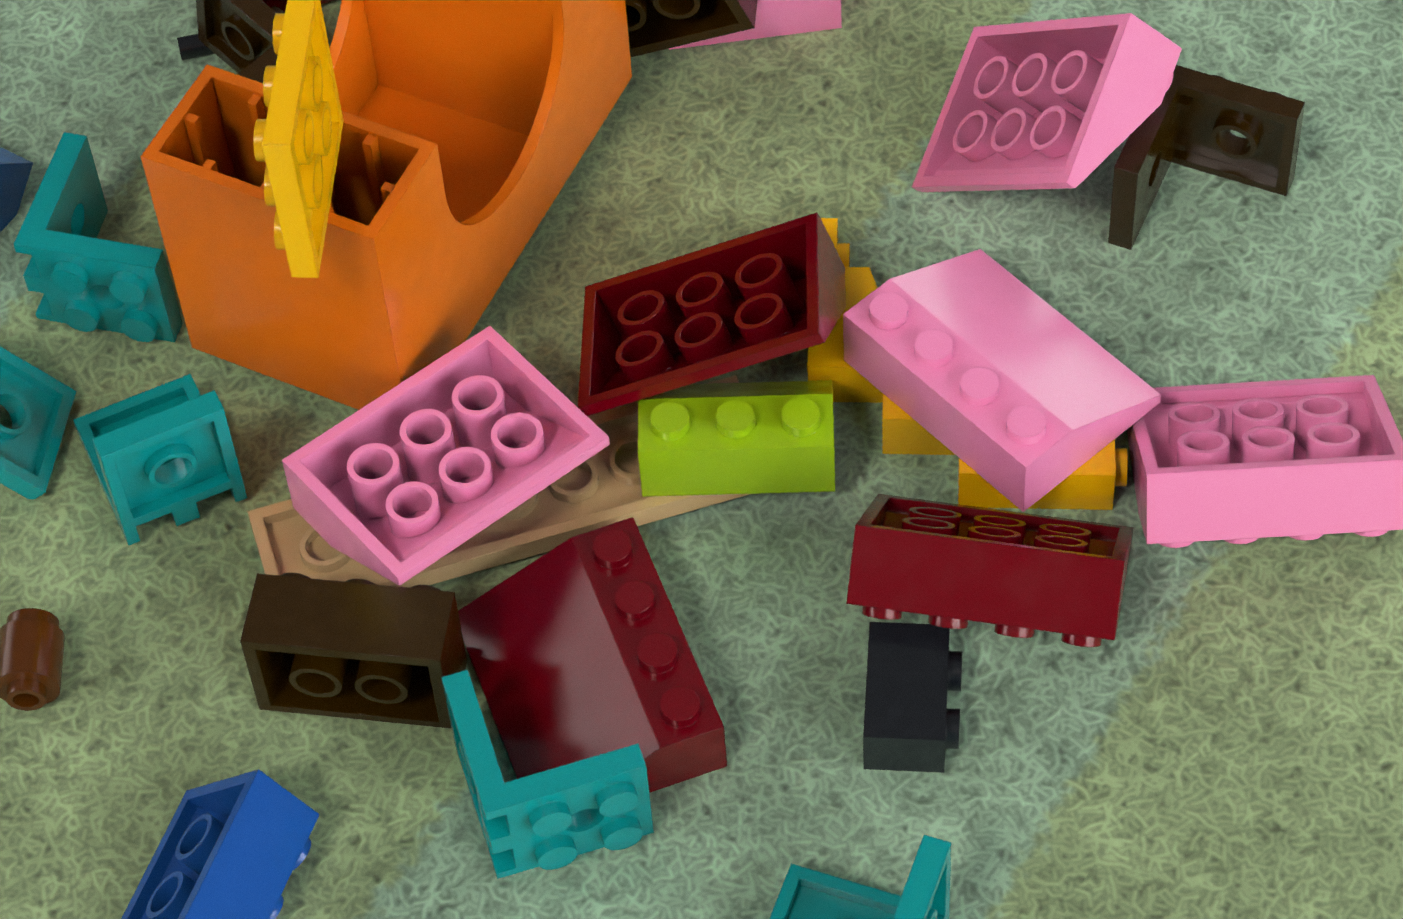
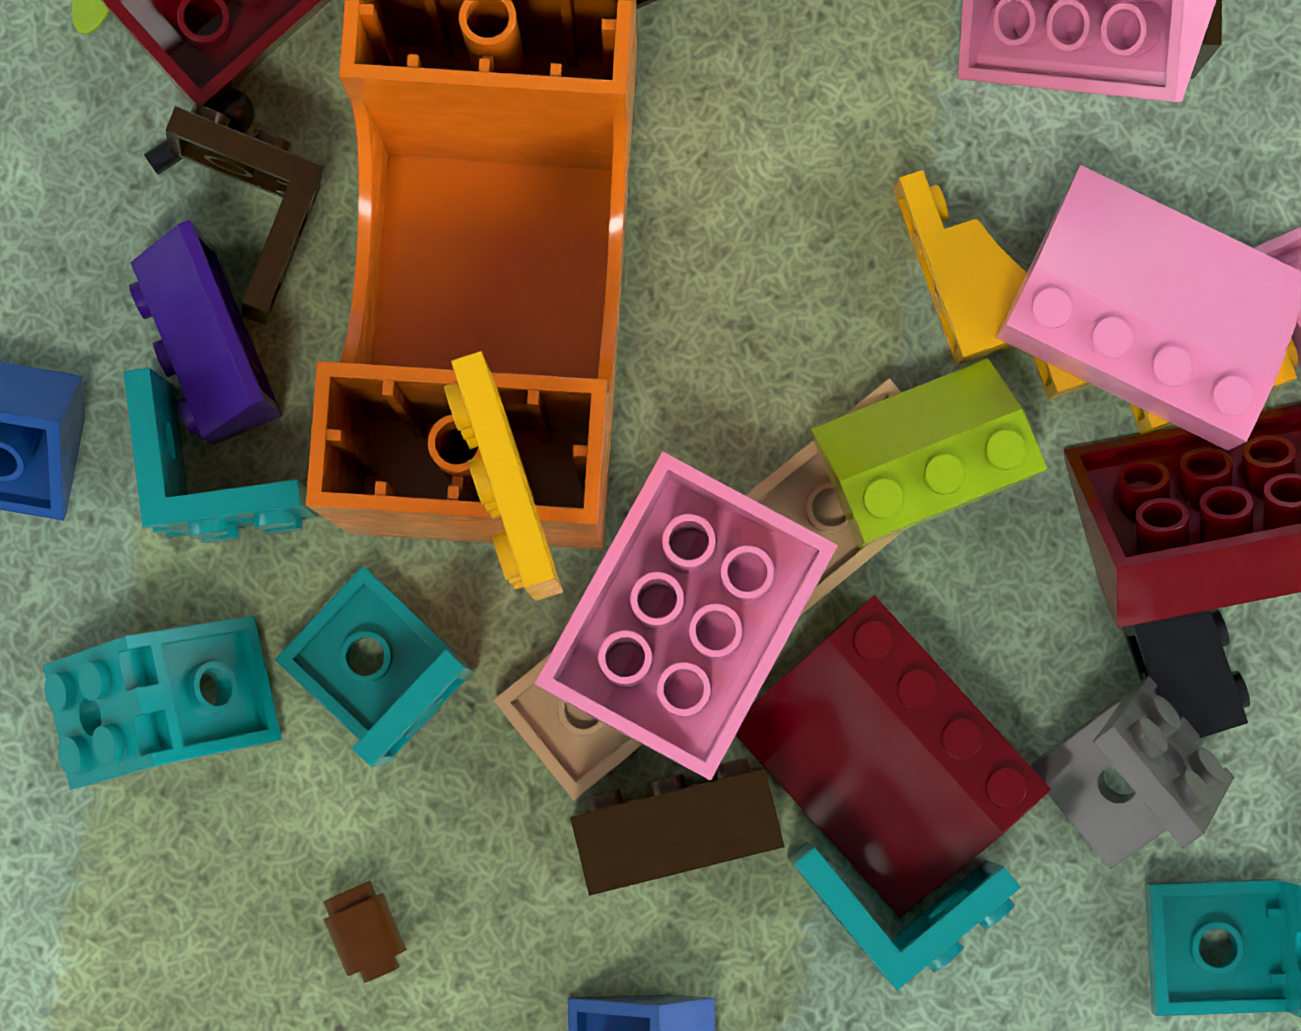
camera: 25 degrees left, 30 degrees up
(141, 112) = (202, 336): none -> dark purple slope
(709, 313) = (870, 366): dark red slope -> none
(820, 708) = (1160, 759): none -> dark grey bracket

